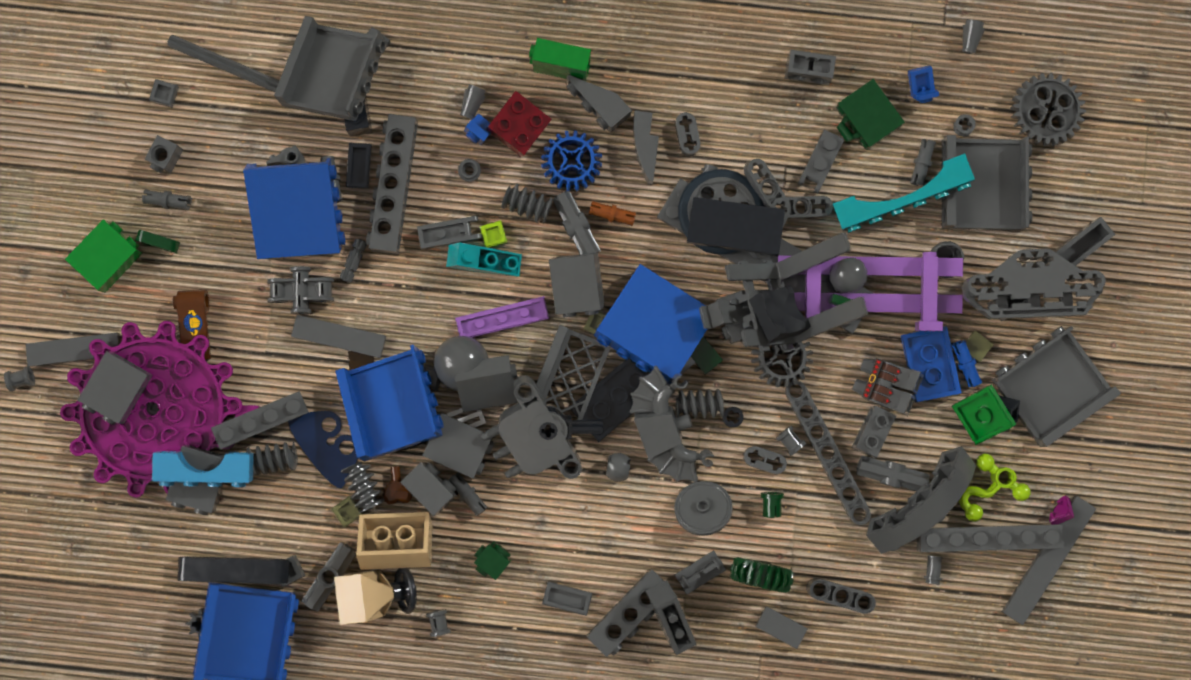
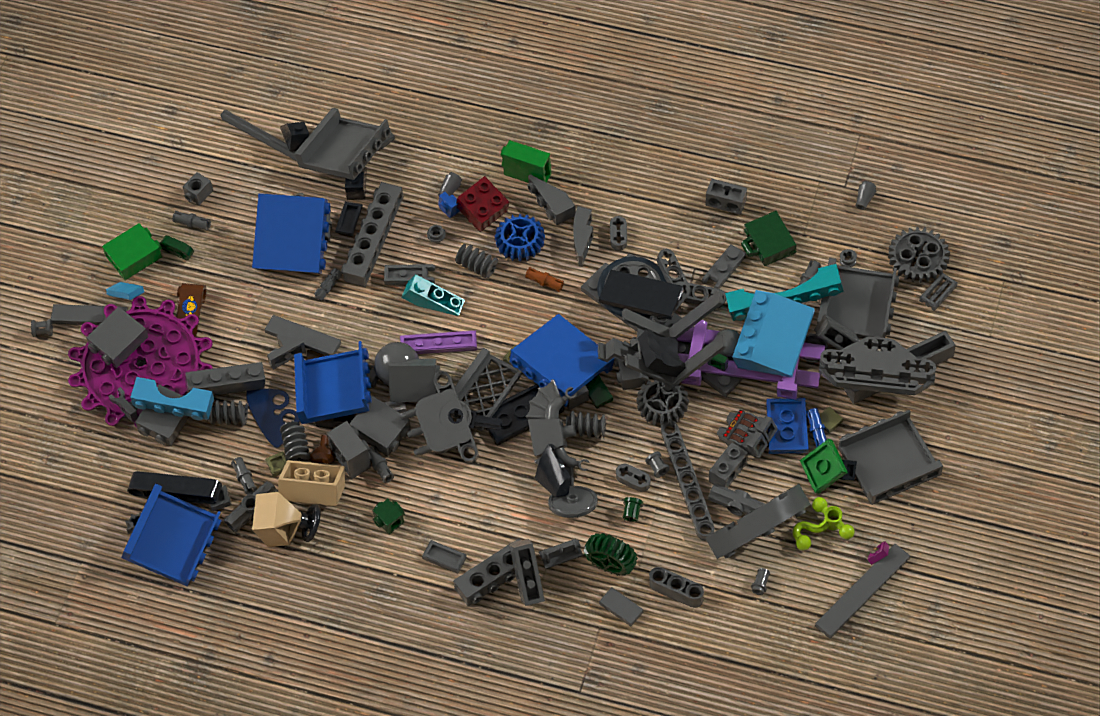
camera: 20 degrees right, 25 degrees down
(109, 315) = (125, 290): none -> dark azure tile
(144, 474) = (125, 406): none -> dark grey plate
(163, 93) = (208, 149): dark grey tile -> none
(267, 61) = (294, 134): none -> black slope
(300, 290) = (280, 297): dark grey axle -> none
(311, 536) = (244, 475): none -> dark grey pin
(328, 359) = (288, 347): none -> dark grey slope
(438, 623) = (332, 556): dark grey bush -> none
(493, 234) = (446, 281): lime tile -> none
(575, 223) = (513, 283): dark grey piece -> none
(577, 284) = (503, 320): dark grey brick -> none
(618, 467) = (508, 461): dark grey piece -> none
(674, 480) = (552, 473): none -> black slope
(731, 423) = (616, 437): black bush -> none
(905, 260) = (772, 334): none -> dark azure slope
(922, 84) = (817, 222): blue bracket -> none
(973, 241) = (835, 333): none -> dark grey brick
(991, 538) = (811, 559): dark grey brick -> none
(1067, 169) = (929, 302): none -> dark grey tile

